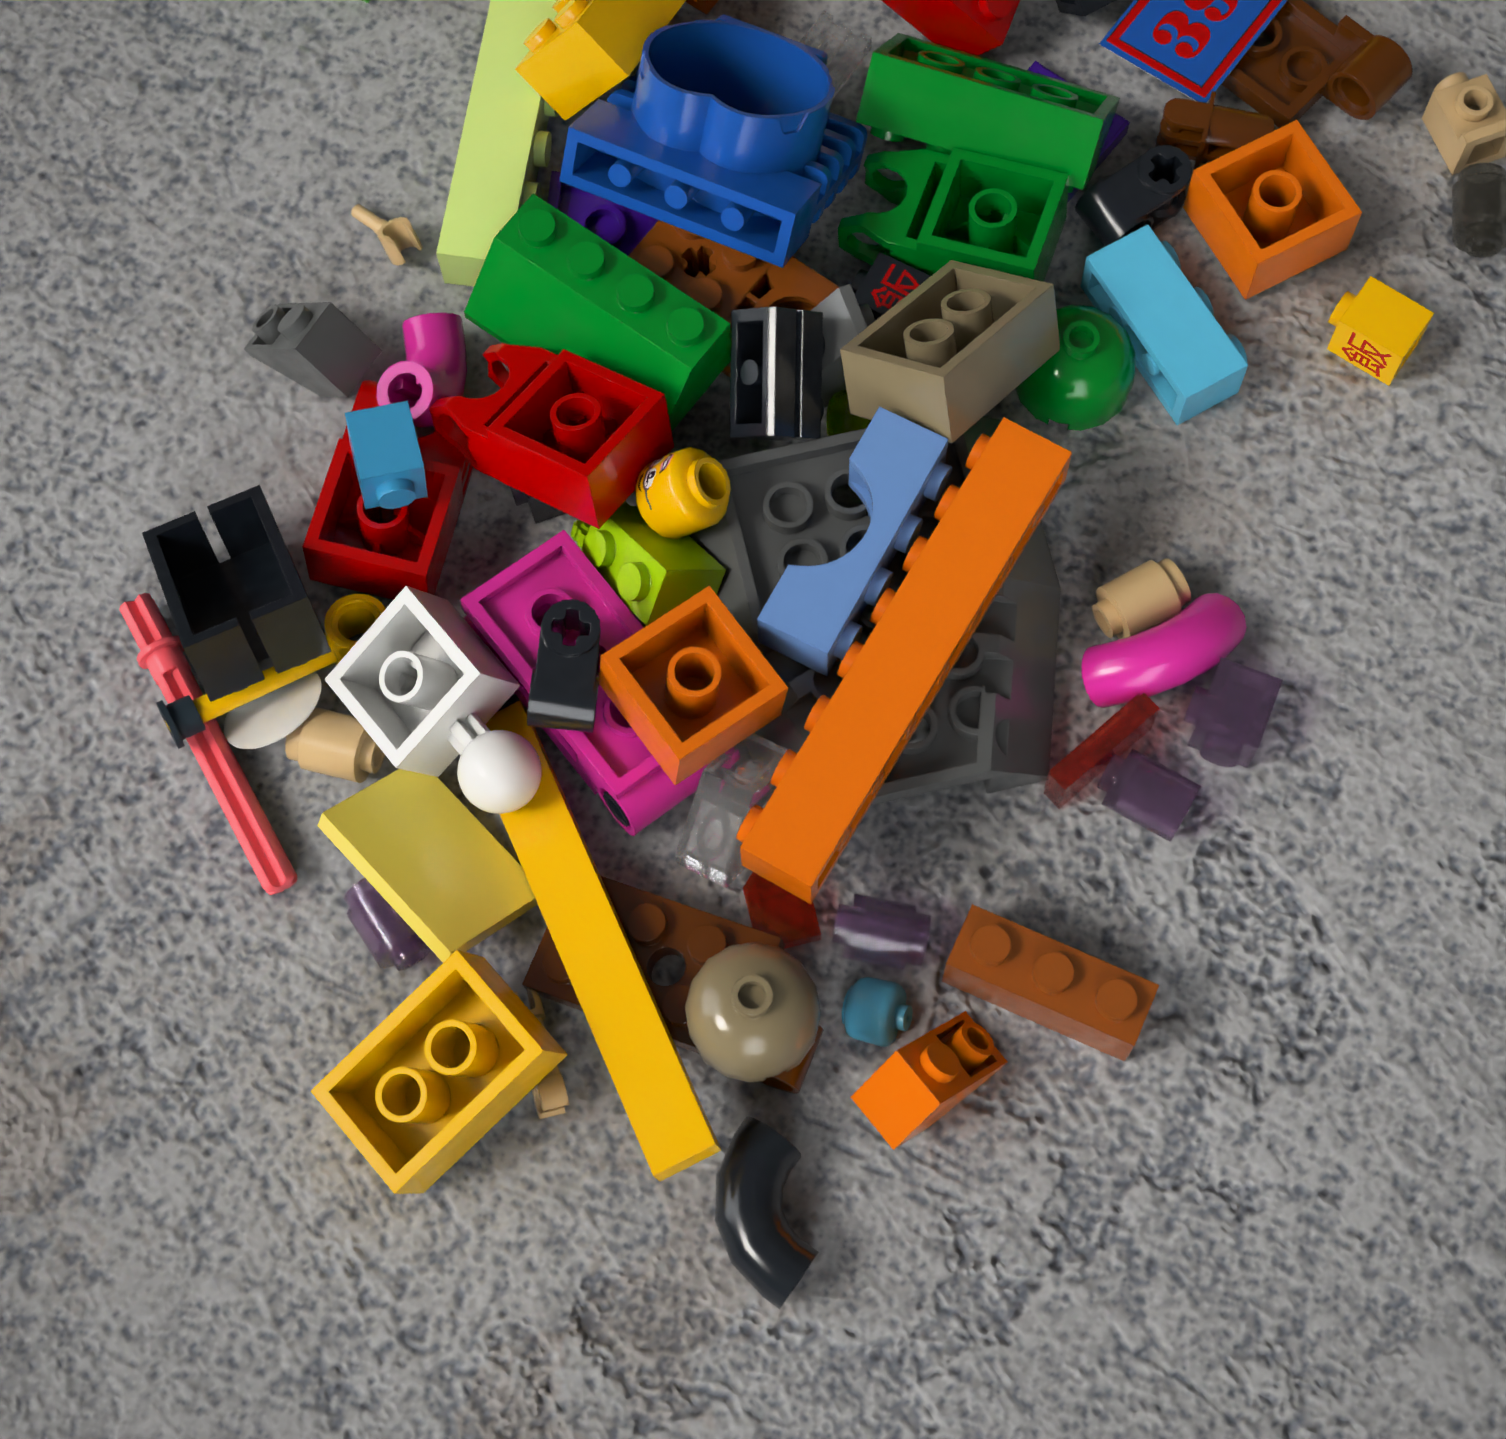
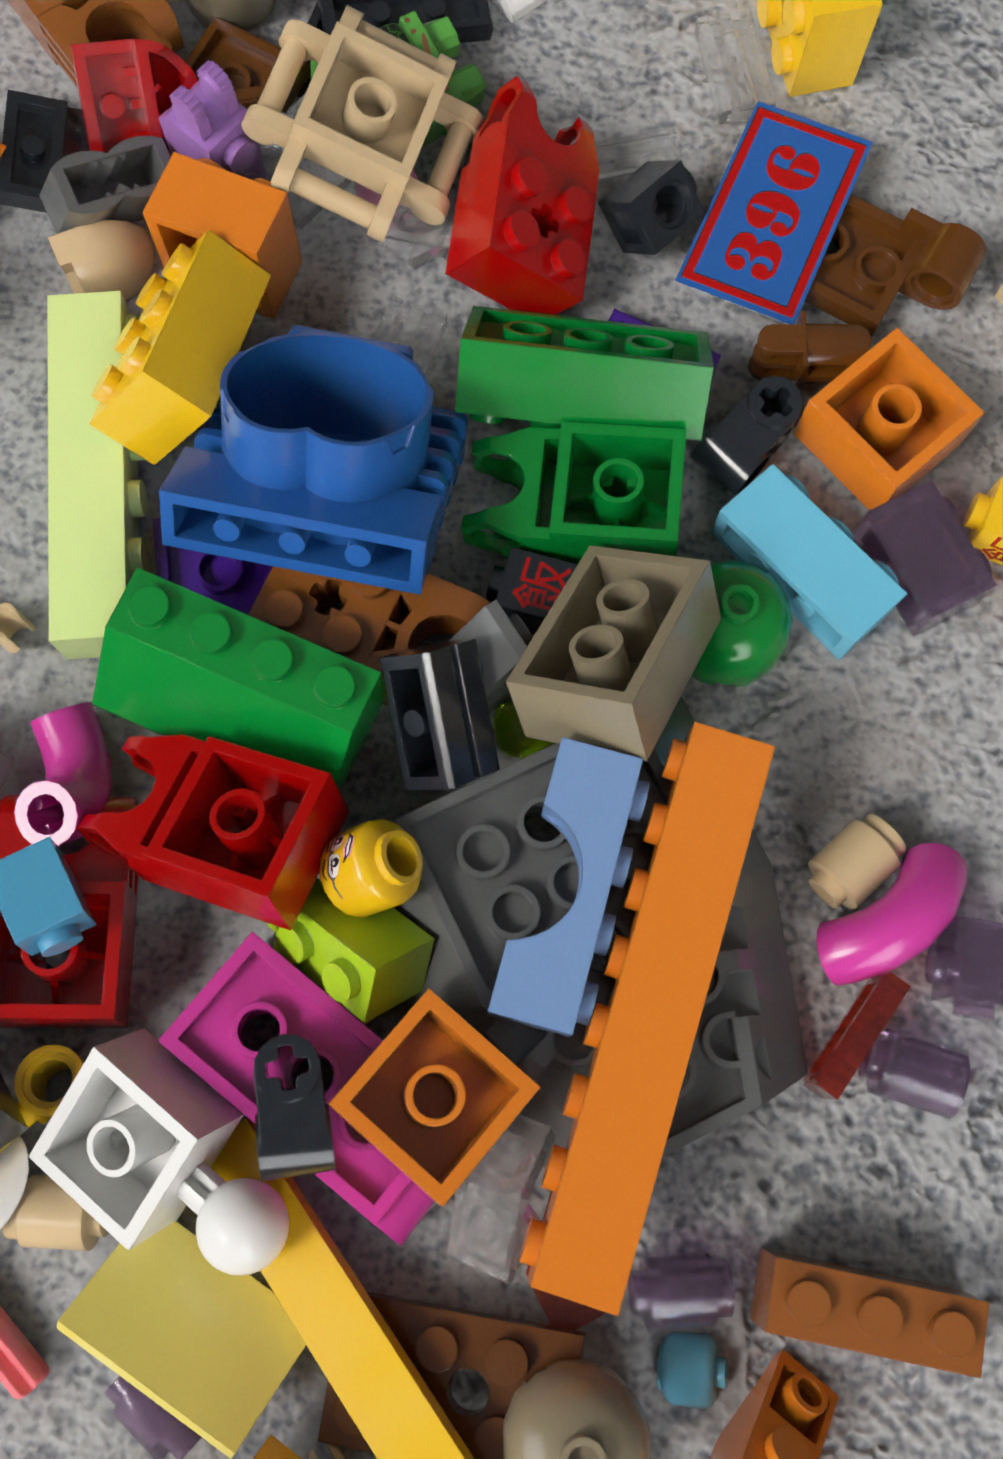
camera: 20 degrees left, 5 degrees up
(1282, 342) = (929, 555): none -> clear purple brick

